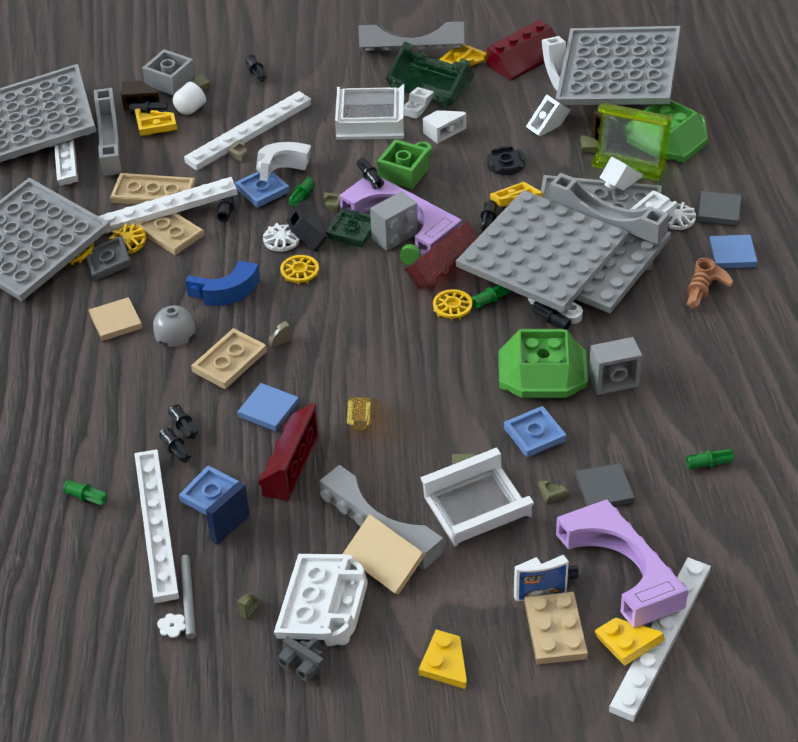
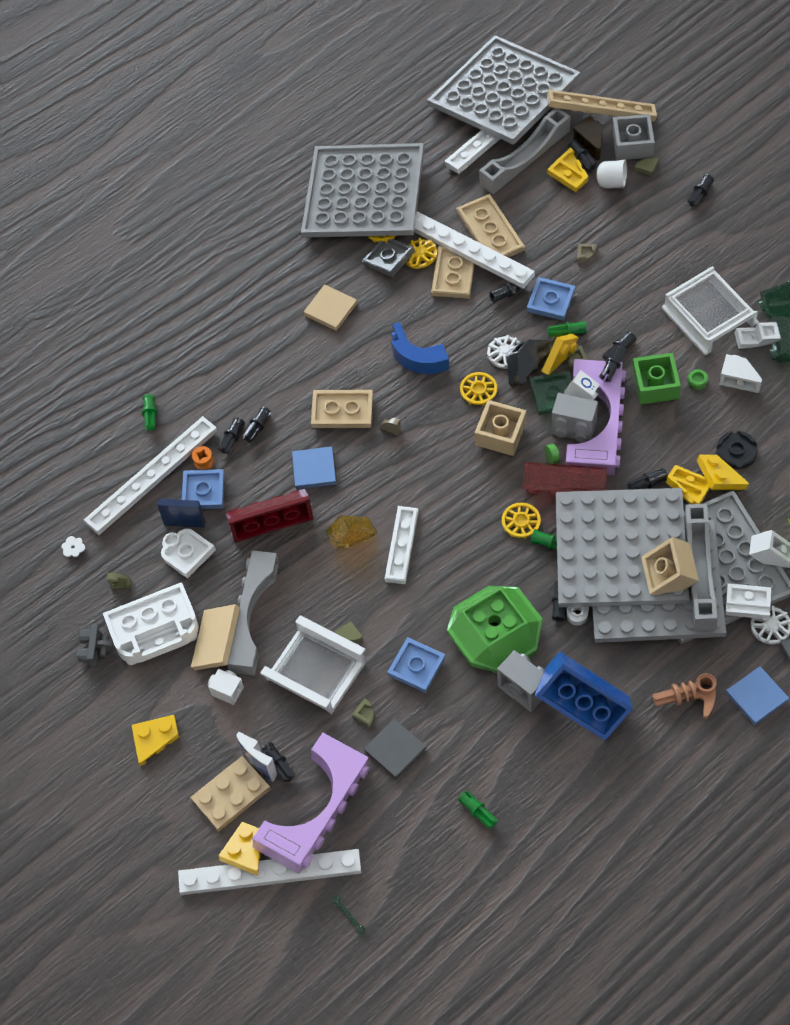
camera: 60 degrees right, 15 degrees up
(115, 73) = (598, 104): none -> tan plate
(174, 325) = (349, 350): light grey cylinder -> none
(178, 476) = (205, 463): none -> orange wheel
(188, 597) = (104, 539): light grey bar -> none
(248, 130) = (618, 240): white plate -> none
(264, 537) = (186, 551): none -> white plate
(282, 155) = (590, 284): white arch -> none
(322, 195) = (561, 350): none -> yellow wing
(349, 172) = (626, 341): none -> black axle
(357, 267) = (500, 427): none -> tan brick
(366, 200) = (582, 387): none -> white brick
(404, 387) = (401, 545): none -> white tile
(441, 573) = (225, 686): none -> white brick
(525, 175) = (720, 474): none -> yellow wing
(596, 221) = (670, 567): none -> tan slope
(664, 329) = (583, 696): none -> blue slope
(727, 601) = (336, 900): none -> clear green hinge

